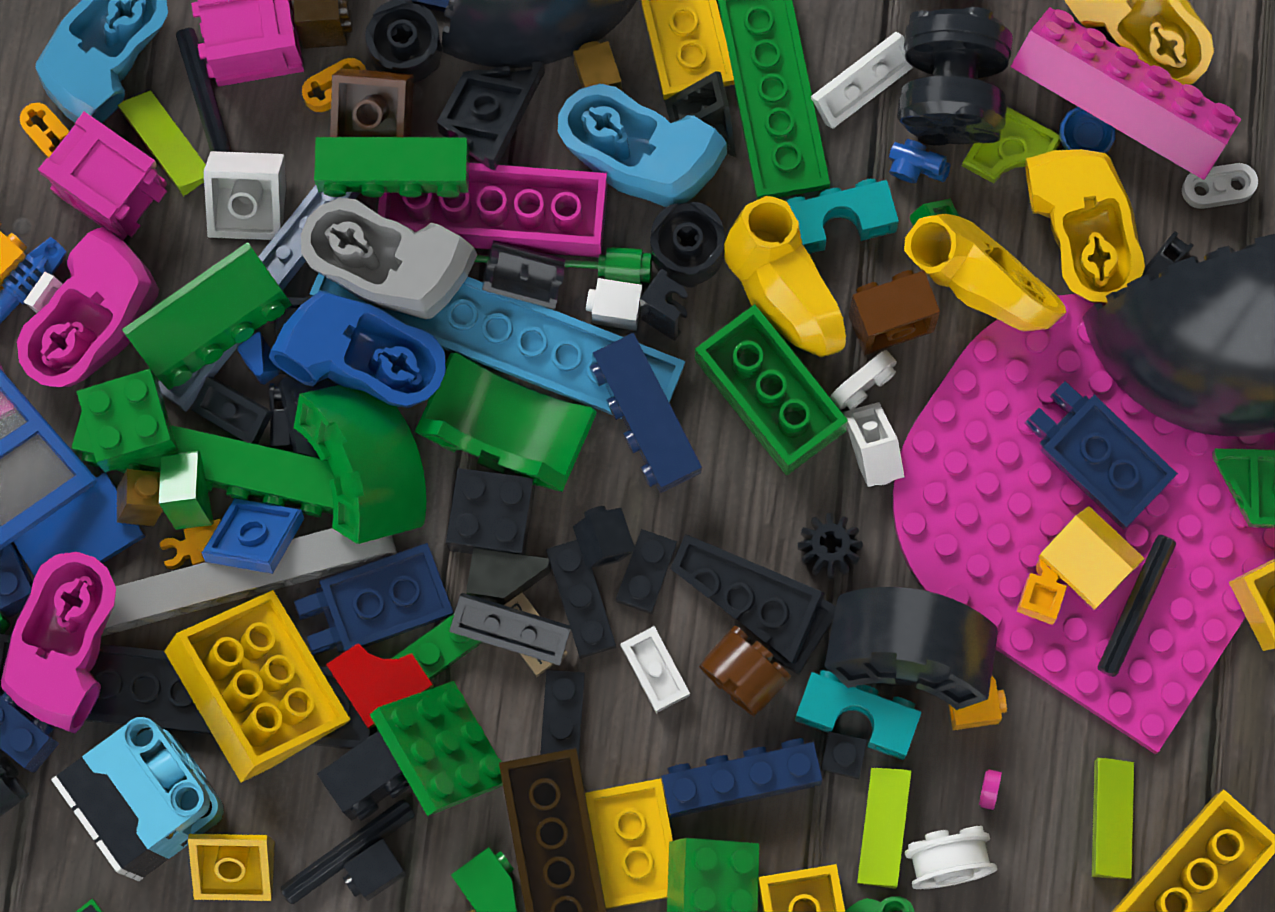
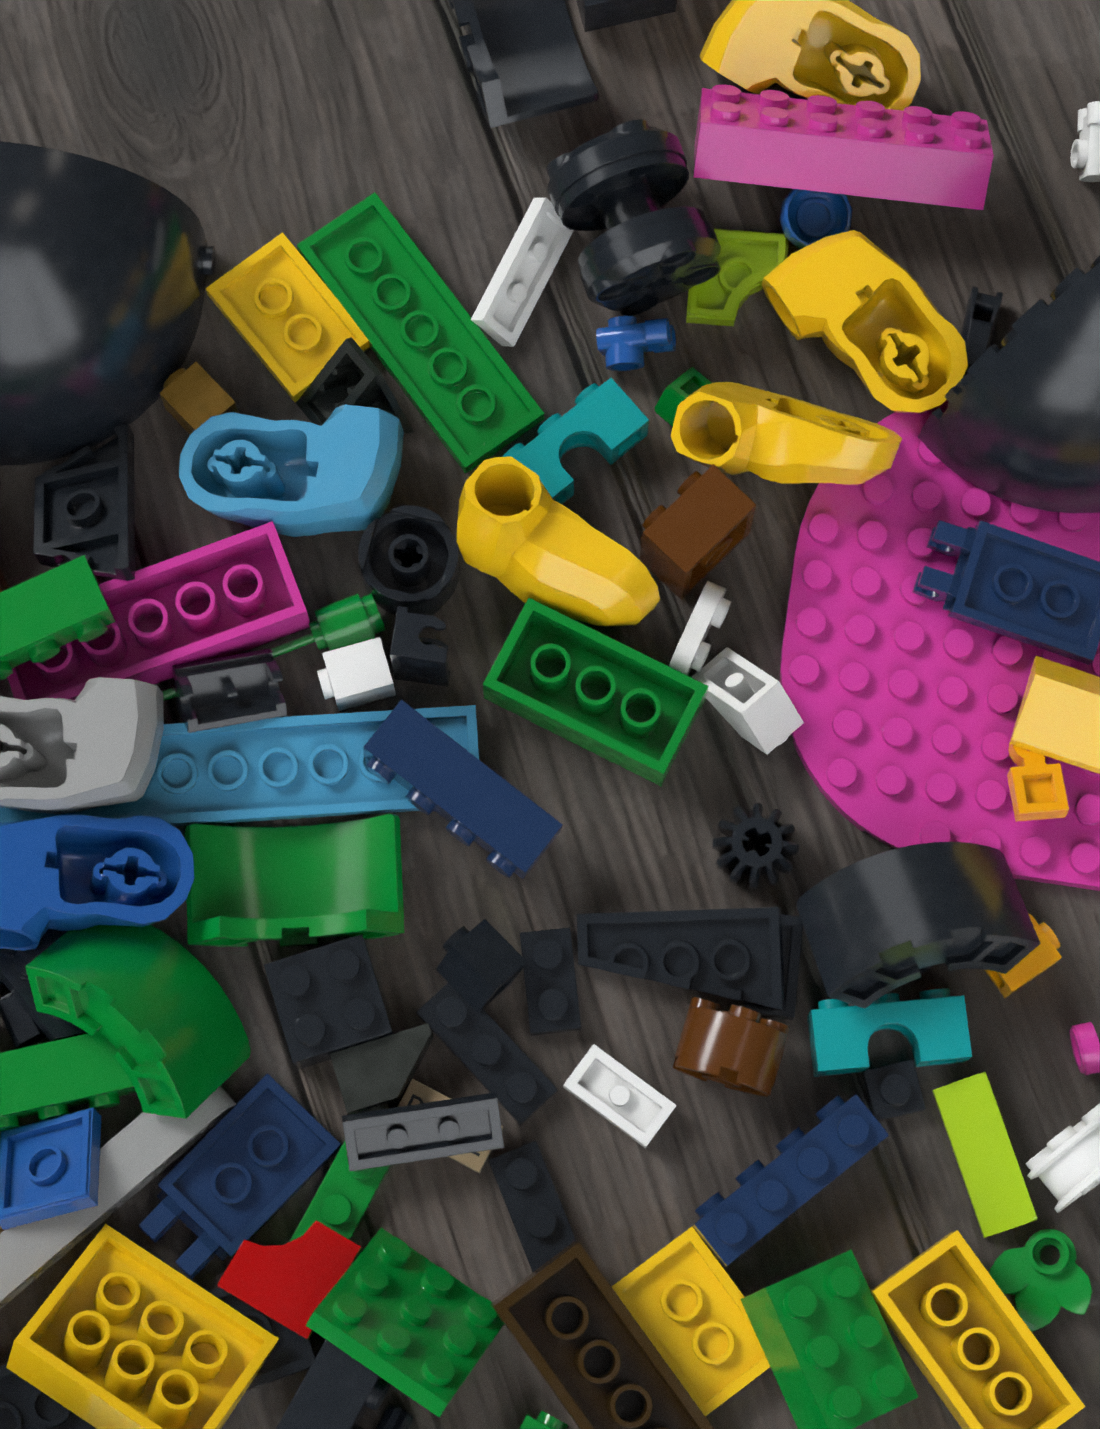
camera: 30 degrees left, 0 degrees up
(1219, 186) = (998, 214): white plate -> none

